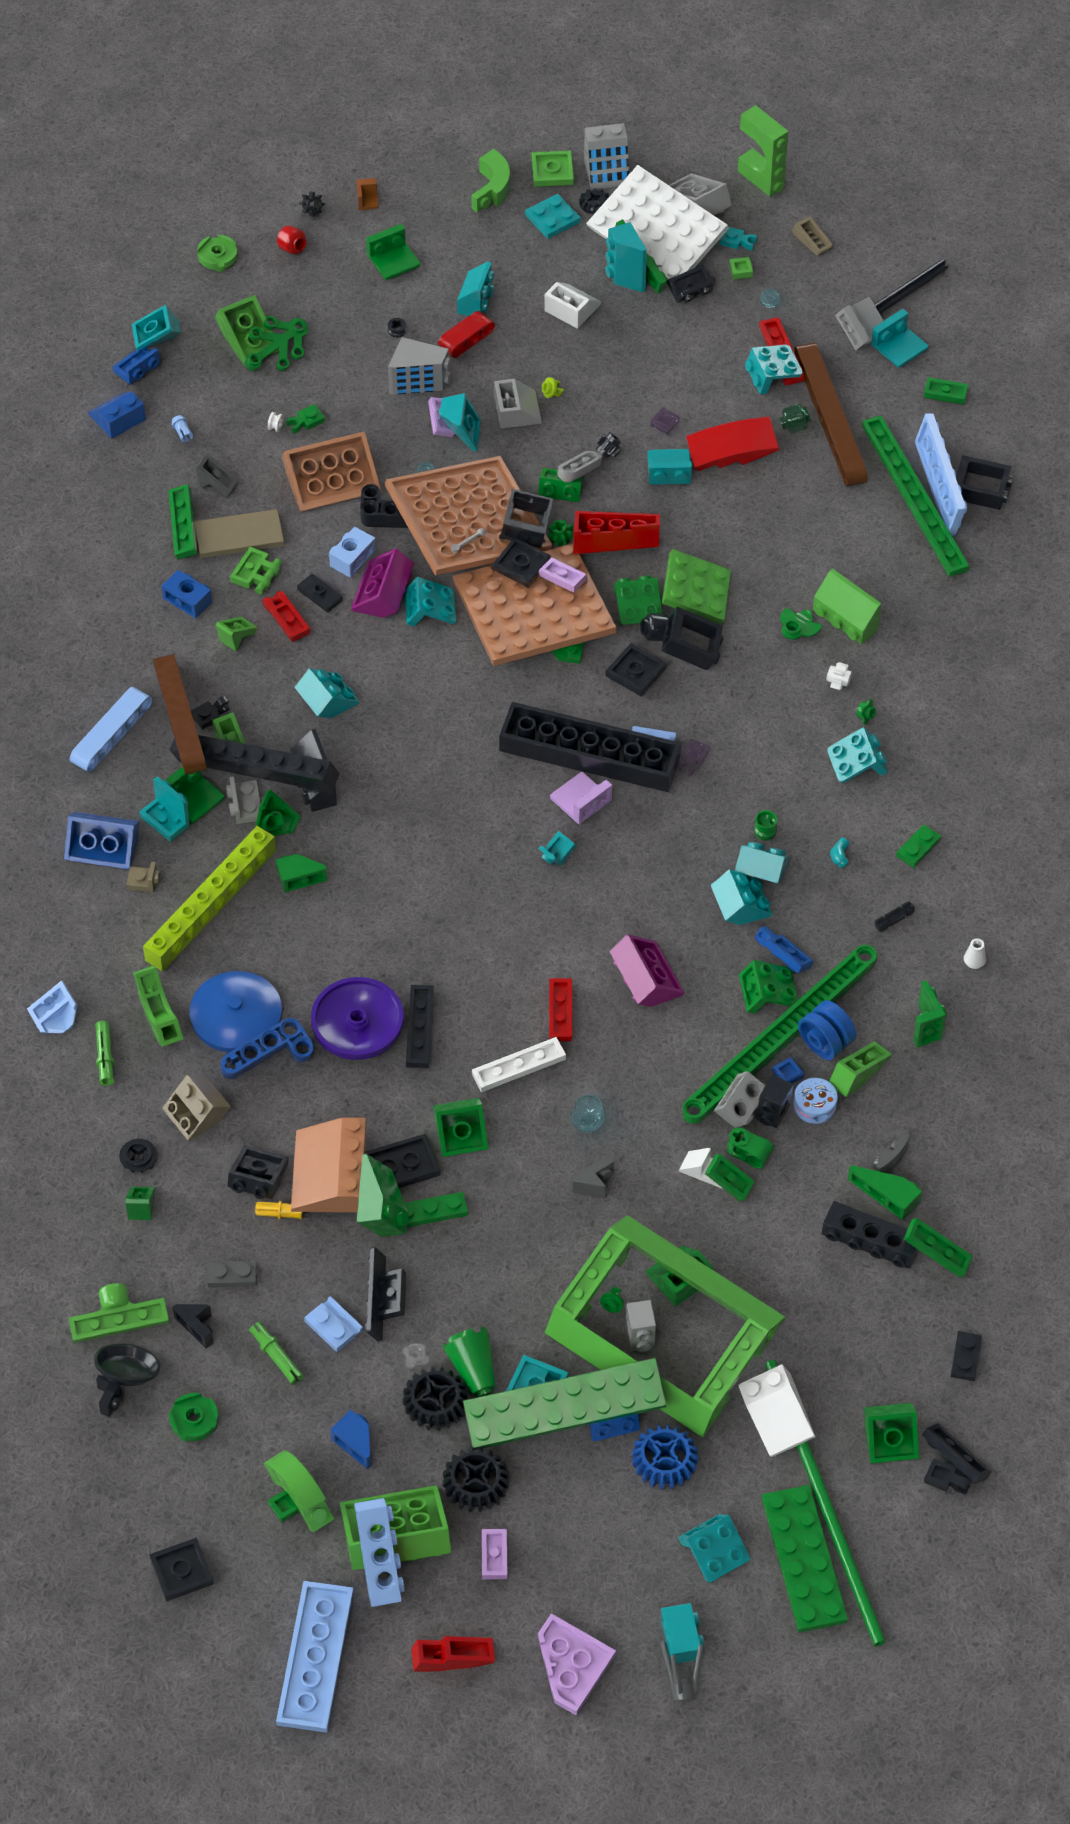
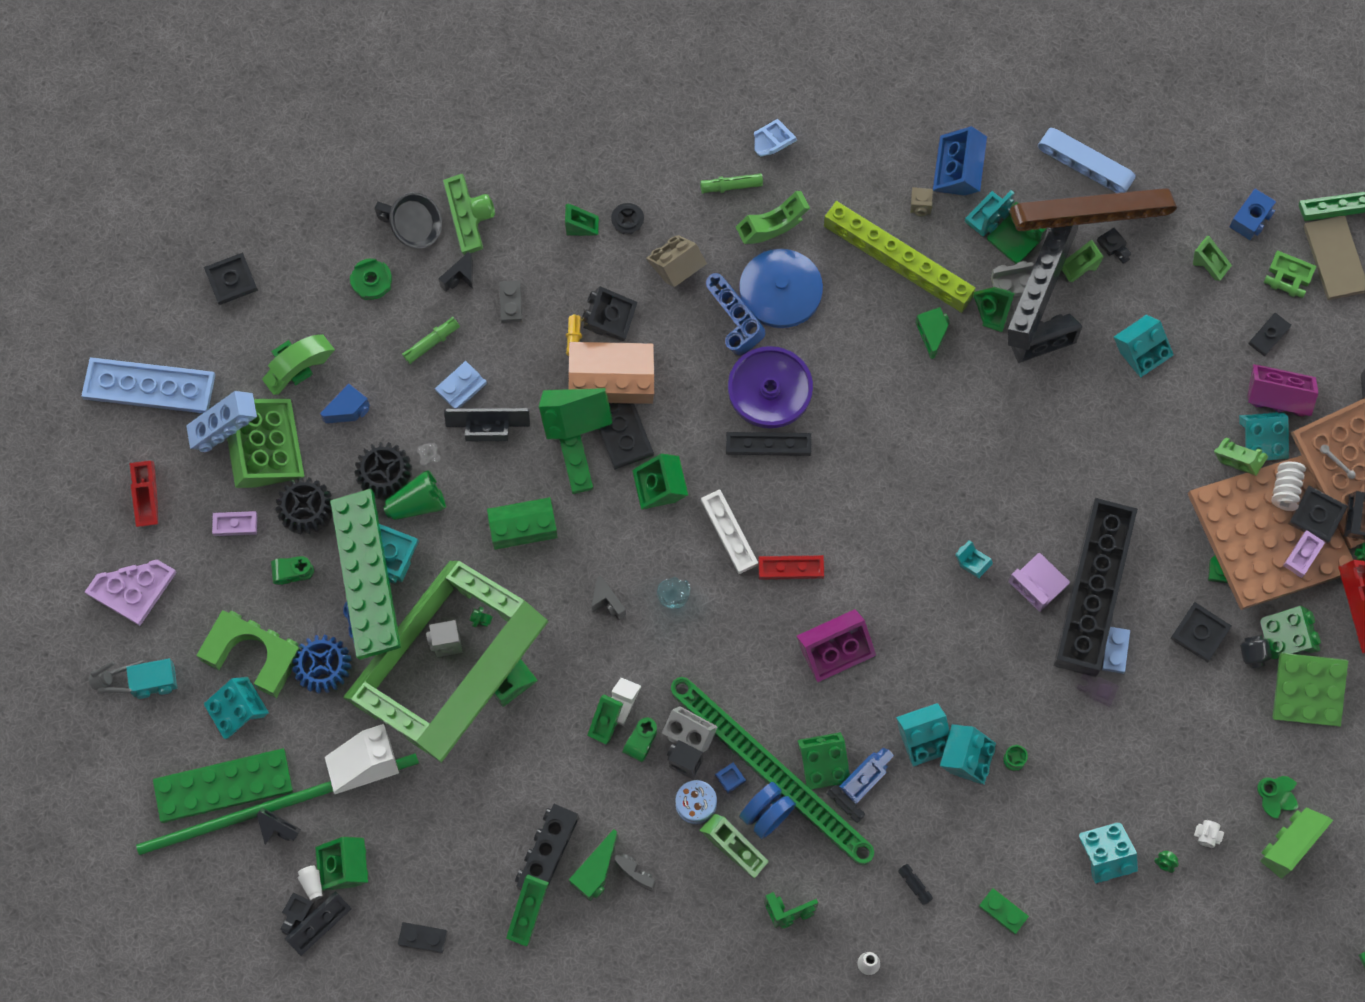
camera: 90 degrees right, 15 degrees up
(286, 616) = (1236, 305): red plate -> none
(352, 551) = (1326, 369): light blue brick -> none
(456, 620) = (1240, 457): none -> bright green hinge
(492, 581) = (1288, 485): none -> white piece
(501, 1259) = (522, 523): none -> green slope
(553, 1493) = (288, 570): none -> green piece
(652, 1499) = (231, 630): none -> bright green arch
(689, 653) = (1241, 662): black window -> none
(813, 971) = (845, 803): none -> black axle
(837, 852) = (988, 829): teal arm -> none
(852, 1498) = (270, 822): none -> black slope
(910, 1462) = (311, 882): none -> white cone

